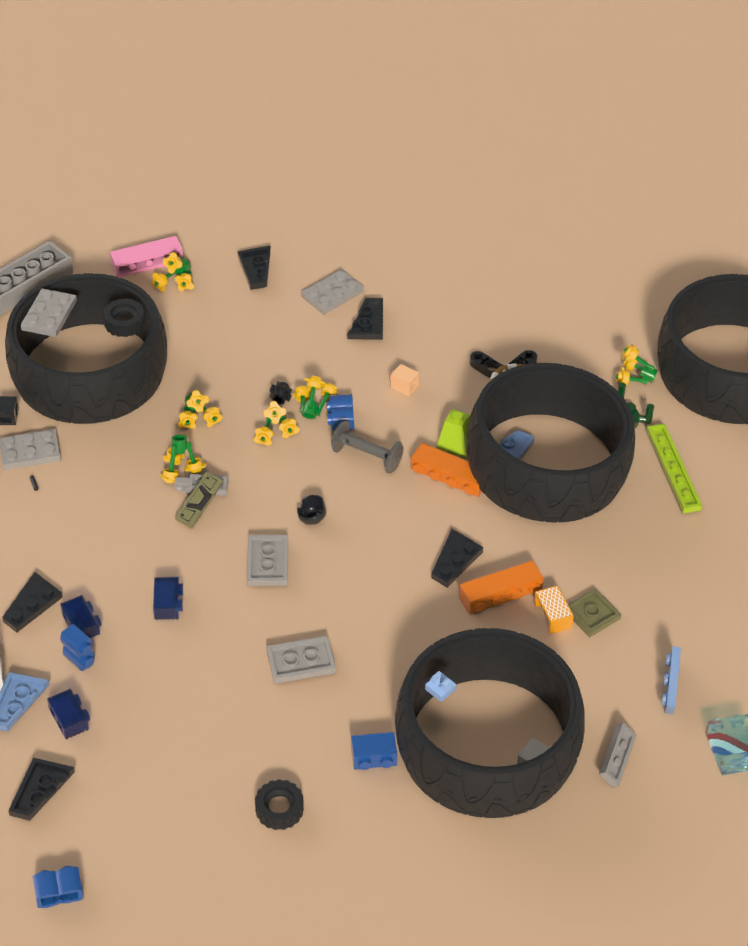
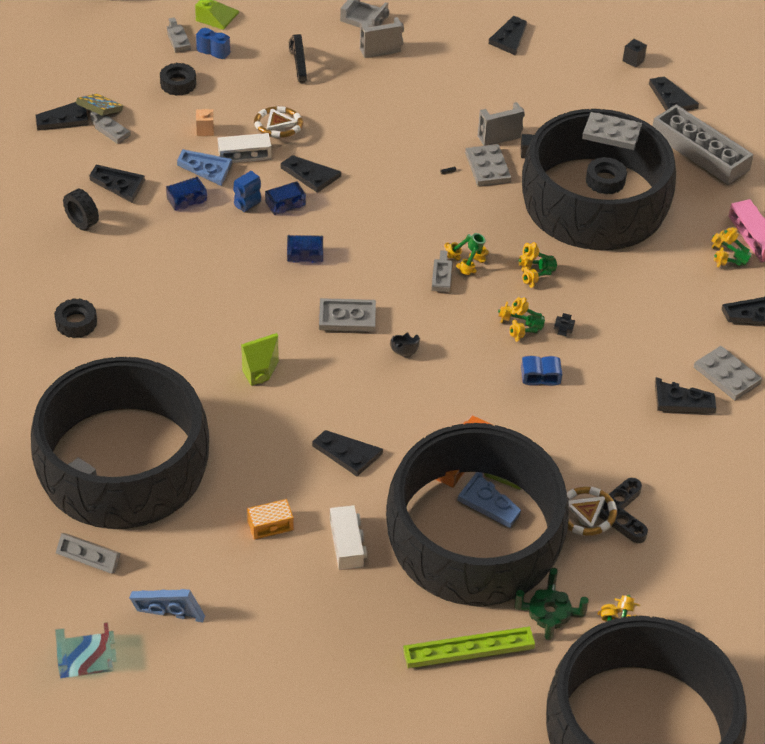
camera: 90 degrees right, 0 degrees up
(57, 886) = (22, 193): blue brick -> none
(103, 809) = (80, 209): none -> black tyre
(199, 500) = (419, 267): olive tile -> none
(301, 659) = (227, 333): light grey plate -> none
(306, 394) = (563, 338): plant -> none
(341, 436) = (473, 400): dark grey hose -> none
(347, 623) = (260, 358): none -> lime slope
(404, 380) = (591, 421): light nougat brick -> none
(440, 686) = (133, 379): light blue tile -> none
(500, 587) = (302, 481): orange brick -> none
(567, 551) = (347, 537): none -> white brick
(593, 613) = (269, 555): olive tile -> none

